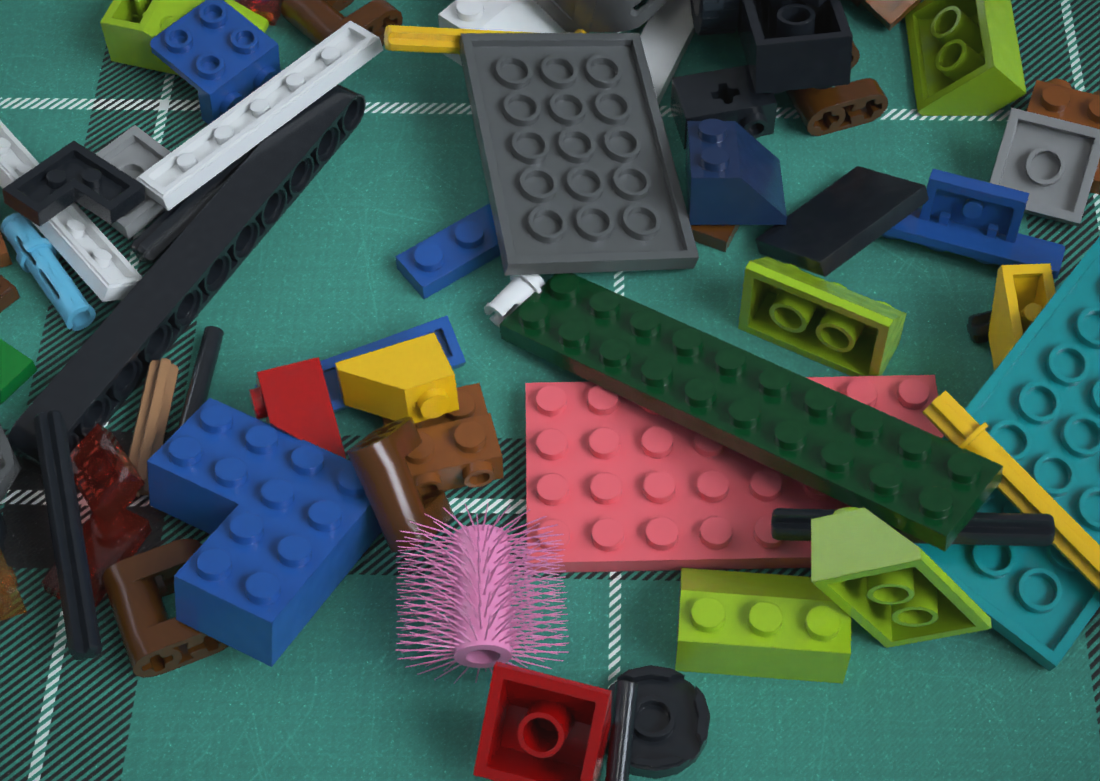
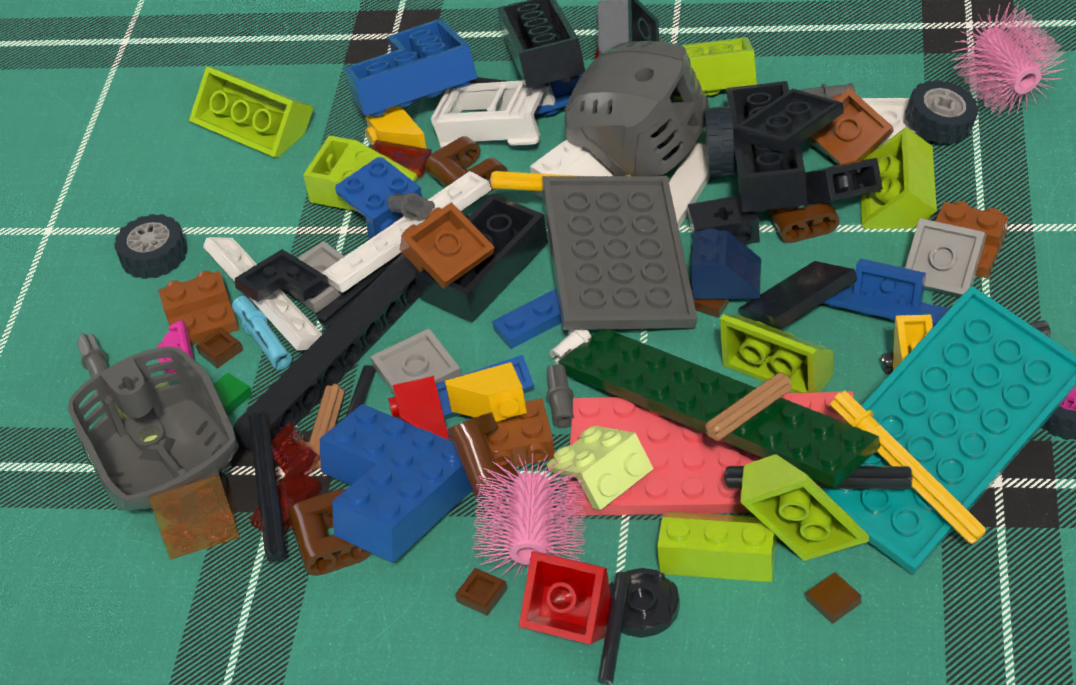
camera: 10 degrees right, 10 degrees down
(266, 74) = (410, 205): none -> dark grey axle
(285, 325) = (415, 359): none -> light grey plate
(324, 142) = (445, 245): none -> dark orange plate
(374, 155) = (517, 237): none -> black brick
(407, 704) = (481, 591): none -> reddish brown tile
(505, 379) = (559, 396): none -> dark grey axle
(584, 489) = (607, 461): none -> yellowish green bracket
(803, 416) = (748, 406): none -> medium nougat axle
(897, 46) = (843, 181): none -> black brick
(938, 712) = (833, 597): none -> reddish brown tile

